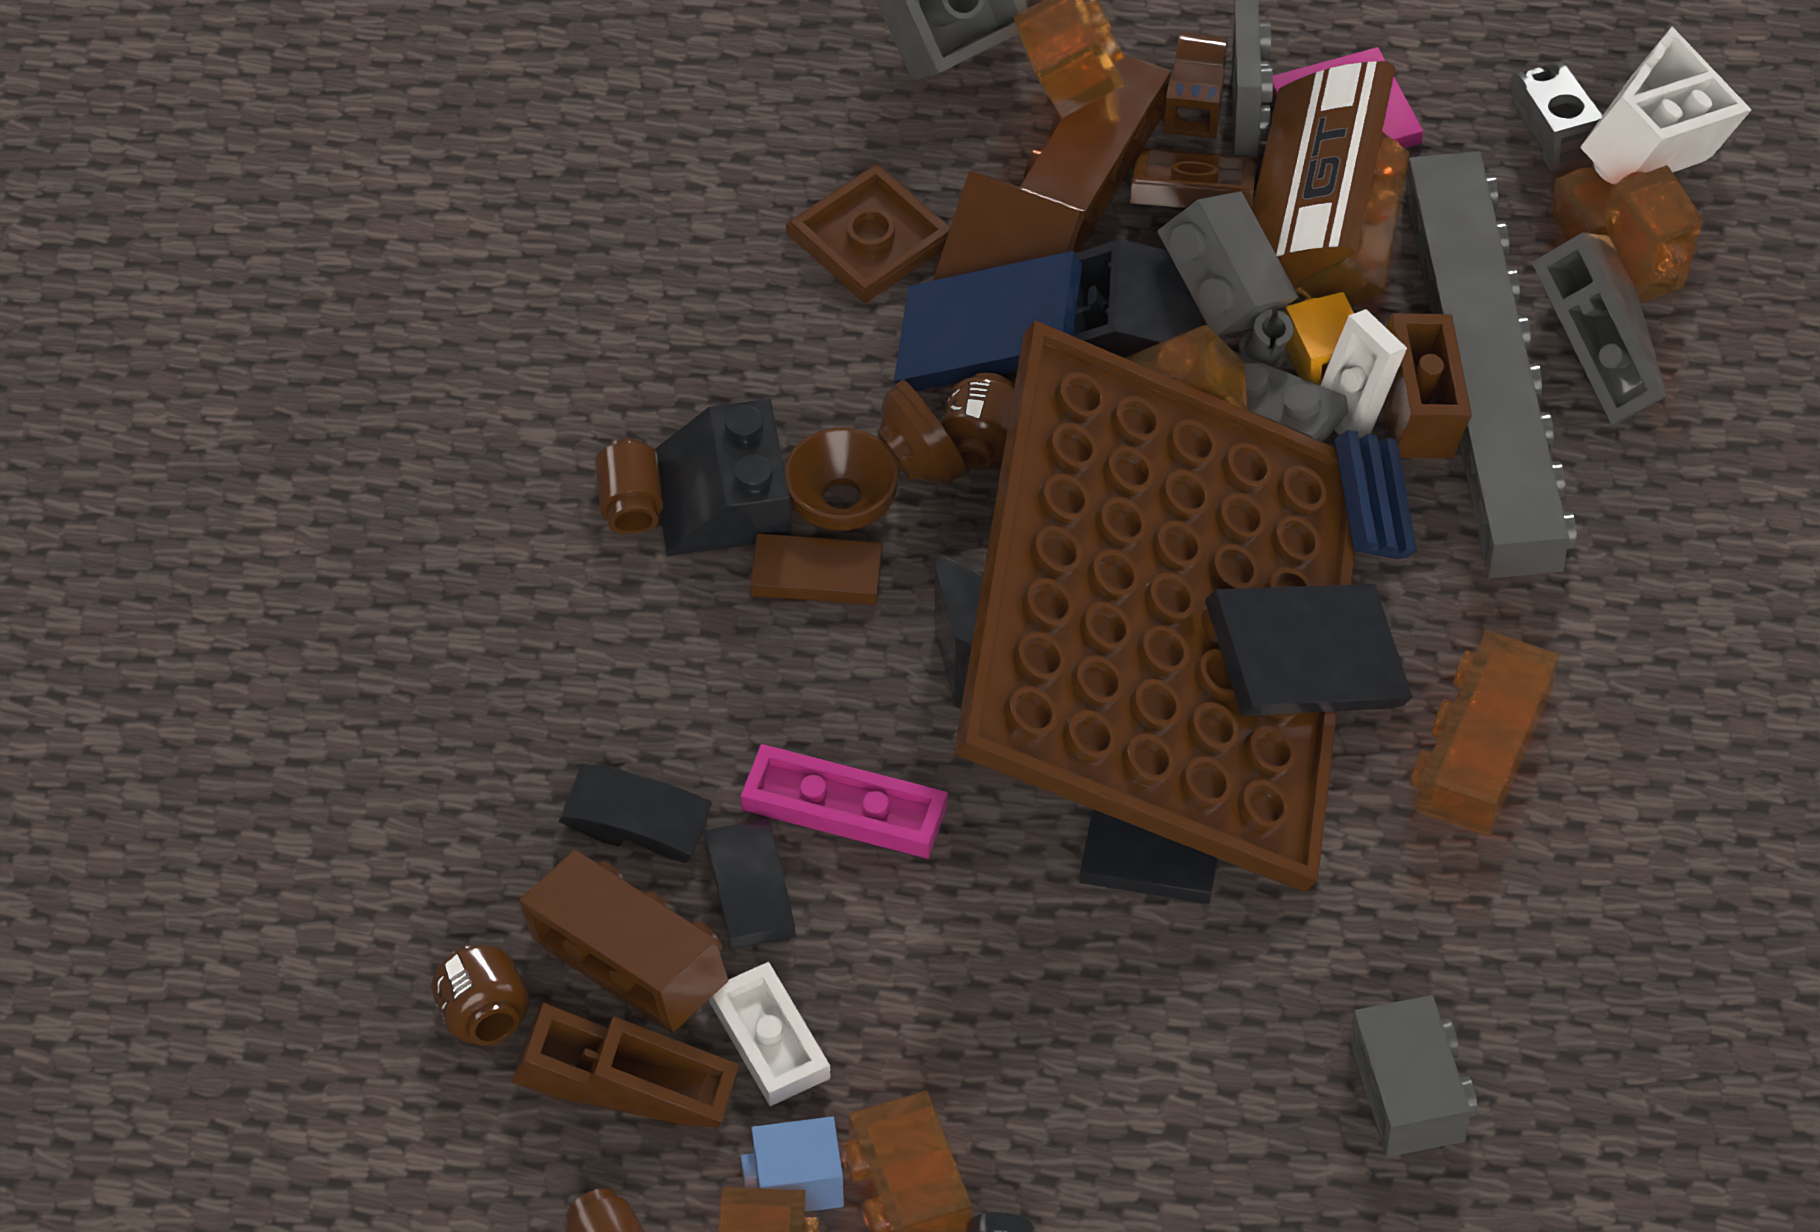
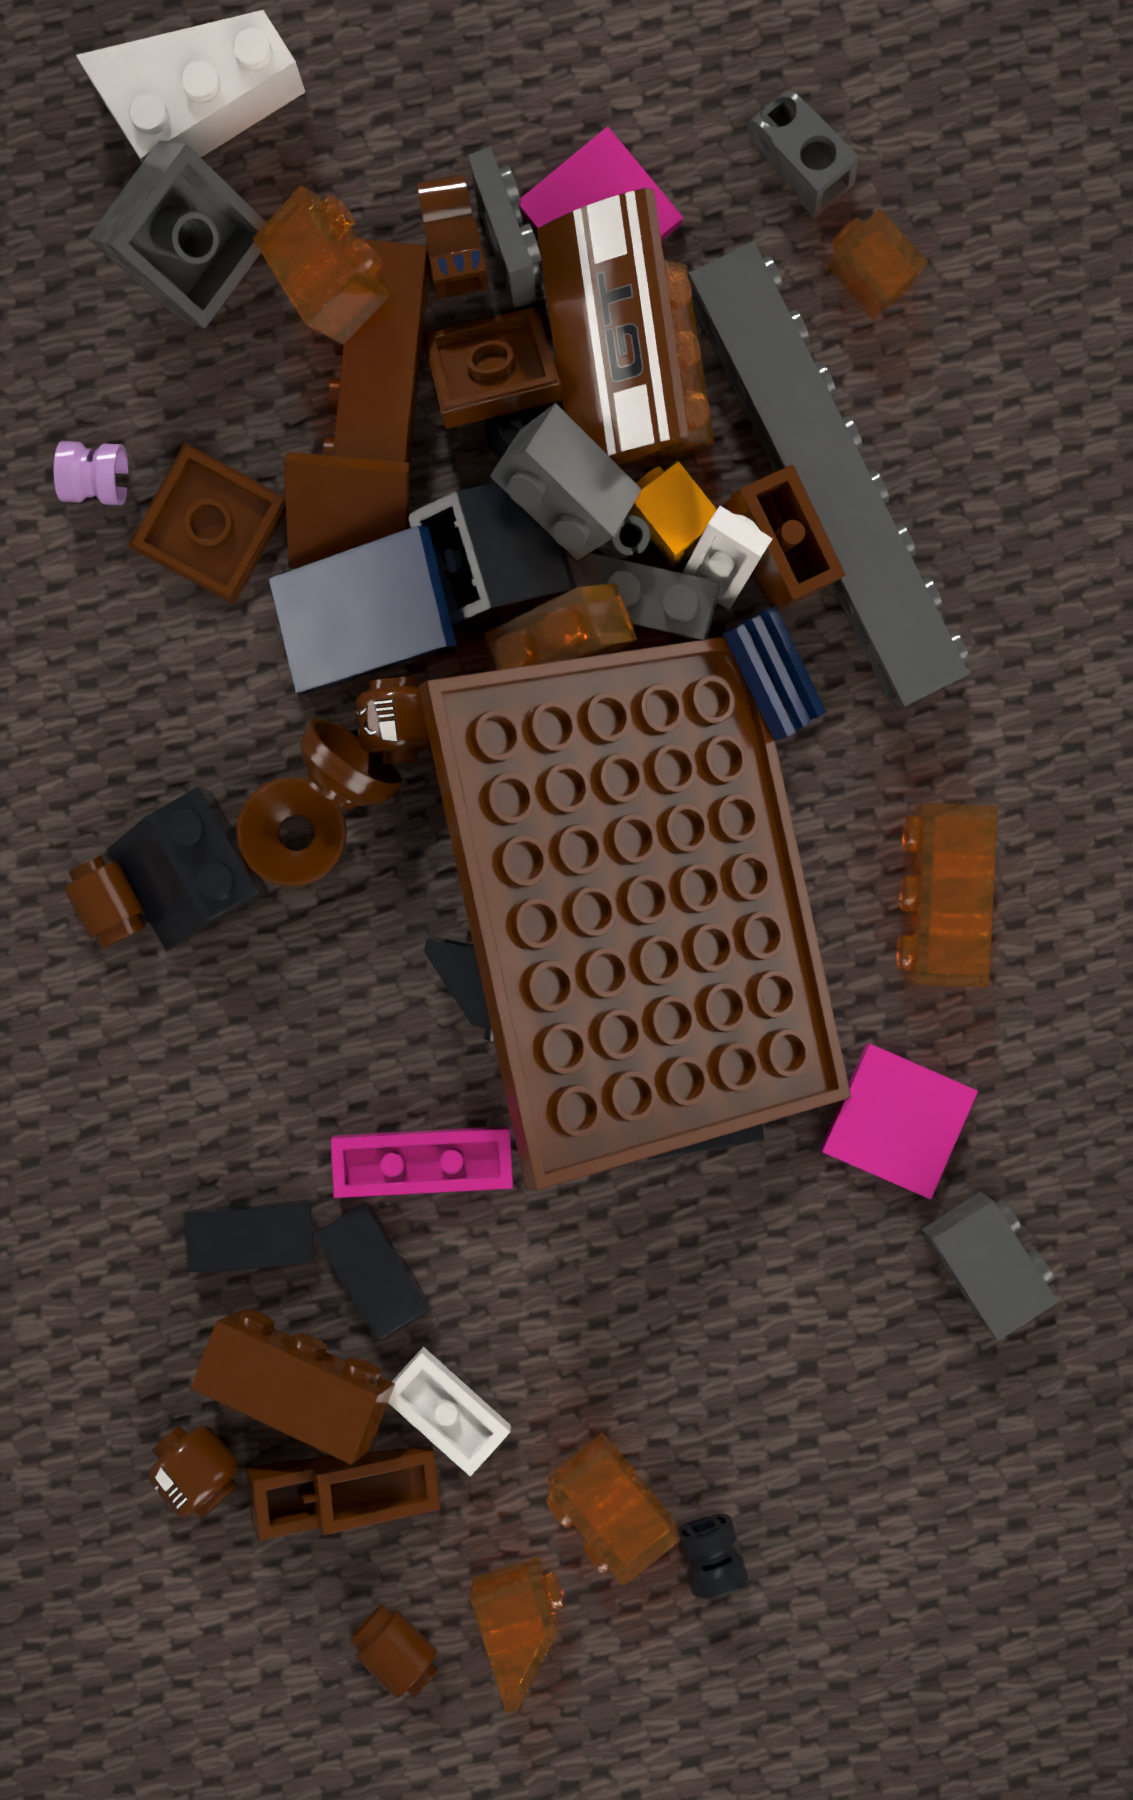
camera: 20 degrees left, 35 degrees up
(776, 156) = (89, 473): none -> lavender wheel
(797, 1158) = (517, 1535): medium blue brick -> none
(816, 569) = (305, 922): reddish brown tile -> none
(1308, 649) = (774, 880): black tile -> none
(1361, 926) = (898, 1120): none -> dark pink tile
(1603, 323) = (924, 400): dark grey slope -> none
(1653, 230) = (947, 286): clear orange slope -> none
(1665, 114) = (914, 136): white wedge -> none

